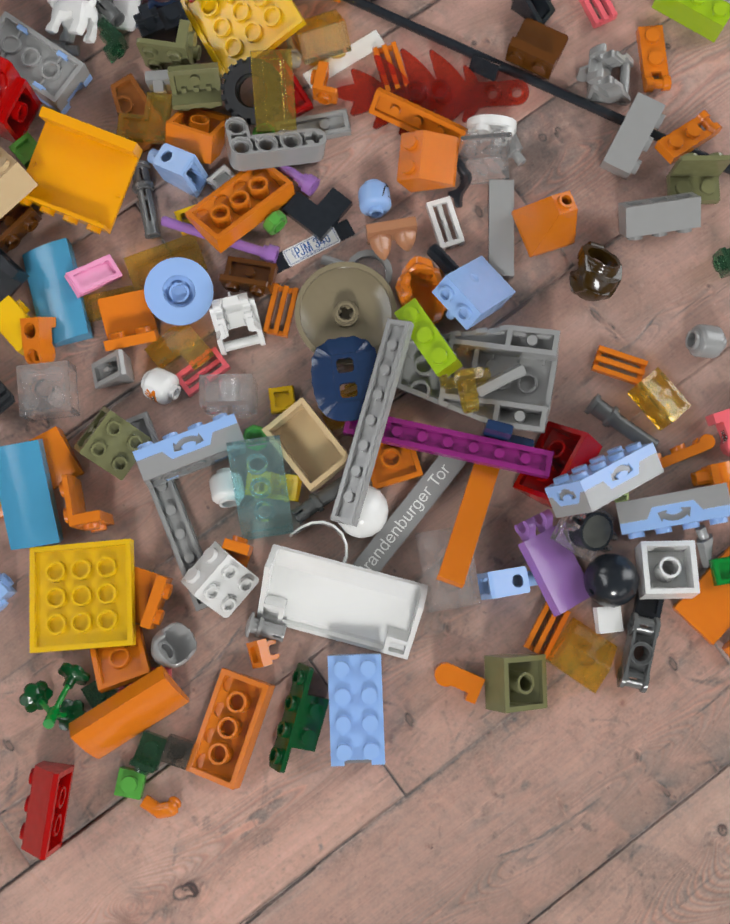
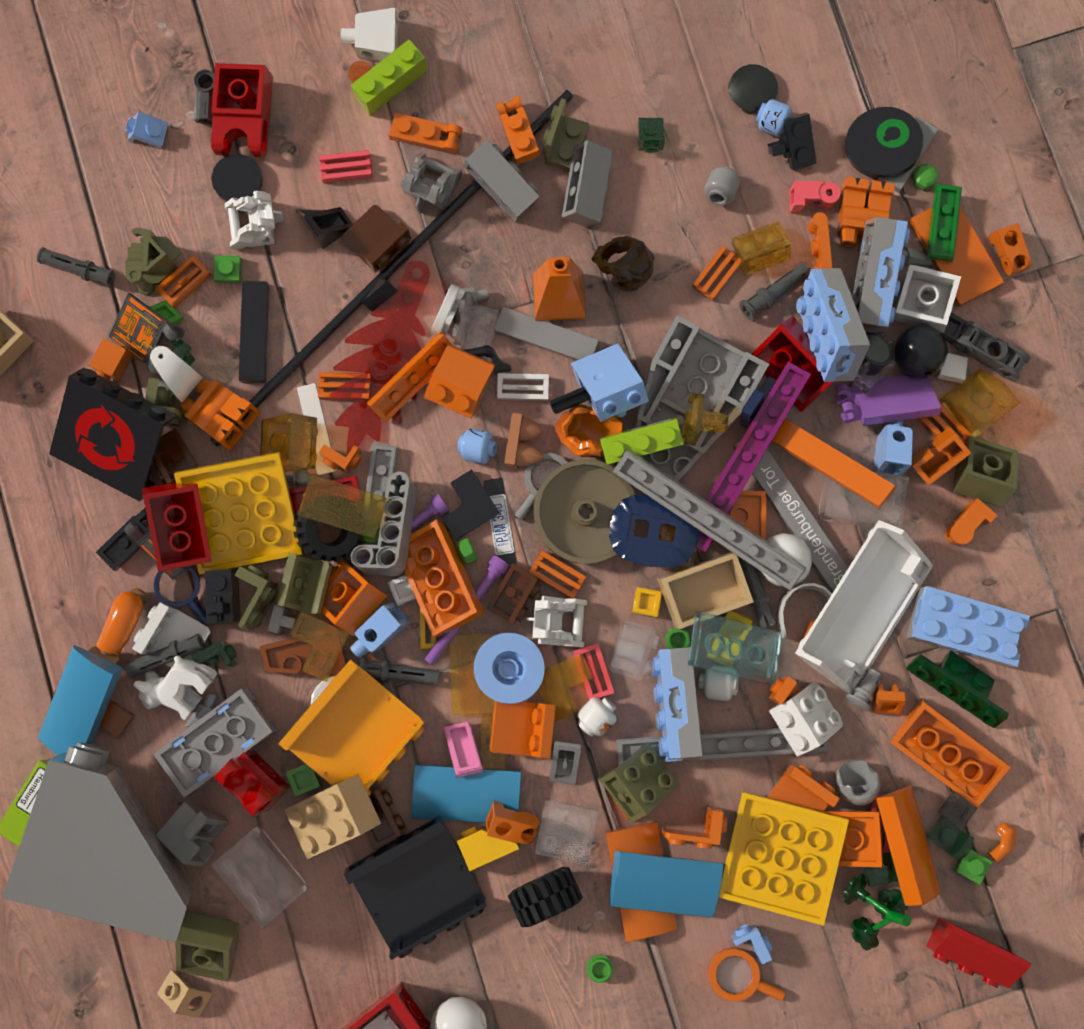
camera: 75 degrees left, 0 degrees up
(500, 379) = (702, 383): light grey tile -> none
(516, 632) = (941, 457): none -> orange piece

